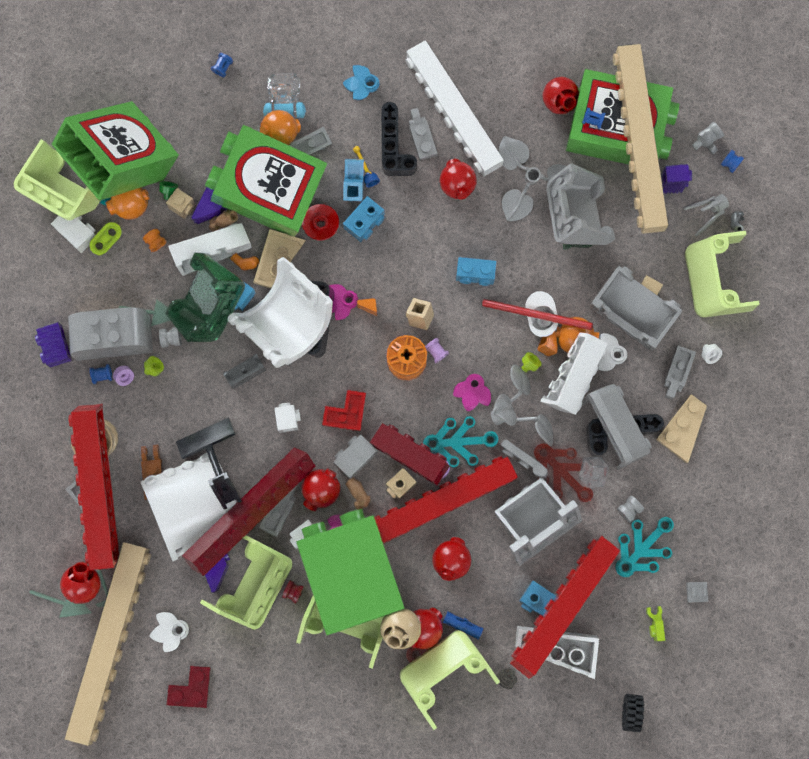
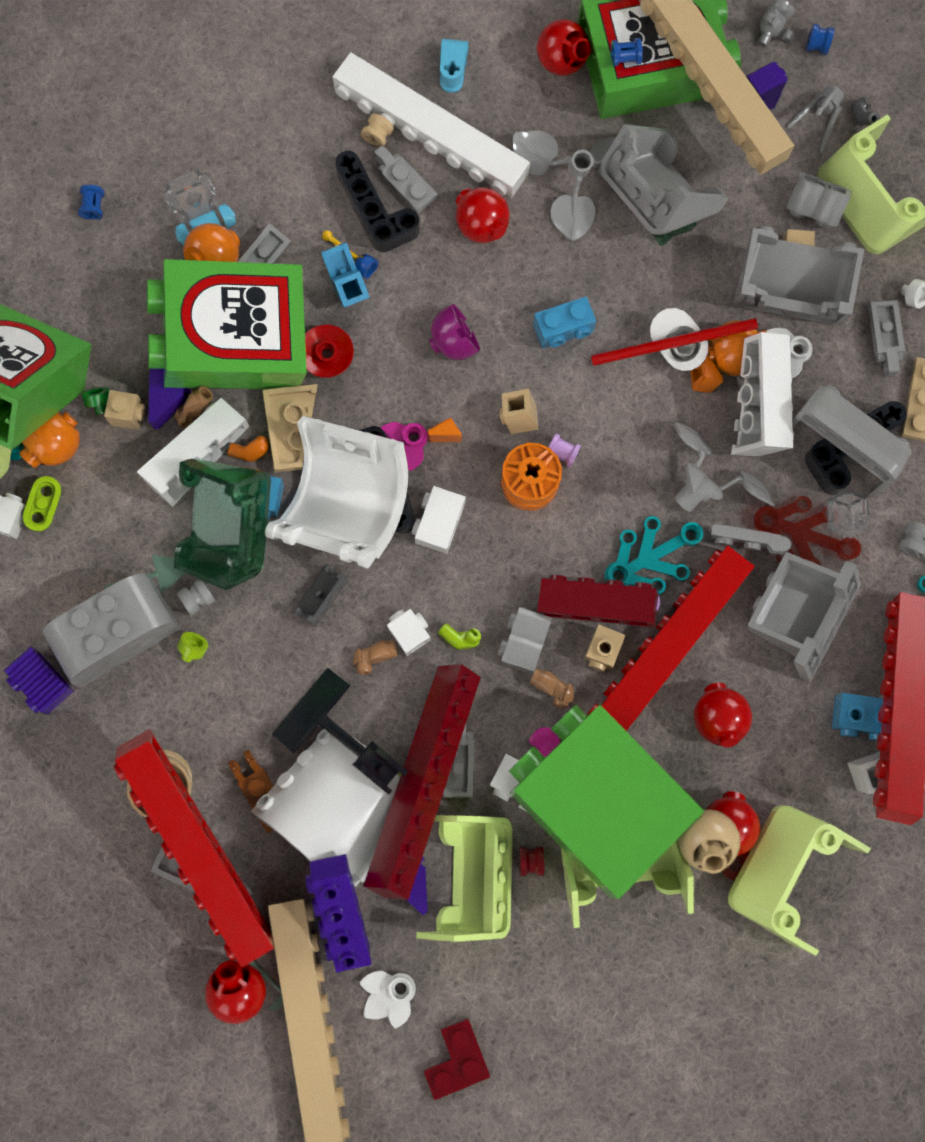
camera: 30 degrees left, 0 degrees up
(69, 608) = (233, 1032): sand green piece -> none
(101, 374) = (124, 690): blue bush -> none
(123, 375) = (156, 678): lavender tile -> none
(154, 240) = (111, 475): orange wheel -> none
(162, 566) = (340, 913): none -> dark purple brick
(261, 422) = (375, 654): none -> medium nougat arm
(316, 438) = (460, 640): none -> lime arm
(320, 489) = (501, 705): red brick -> none
(338, 358) = (439, 519): none -> white brick
(349, 417) = (490, 593): red plate -> none
(358, 83) = (287, 148): dark azure plate -> none
(364, 219) = (383, 320): dark azure brick -> none
(402, 247) = (452, 335): none -> magenta cylinder
(419, 97) = (377, 130): none -> tan wheel
(463, 625) = (777, 796): blue pin -> none
(472, 395) = (637, 488): dark pink plate -> none
(488, 73) = (452, 64): none -> medium azure piece
(507, 678) = (871, 836): clear smoke tile -> none
(530, 362) = (693, 410): lime tile -> none
(677, 265) = (818, 200): none -> light grey brick

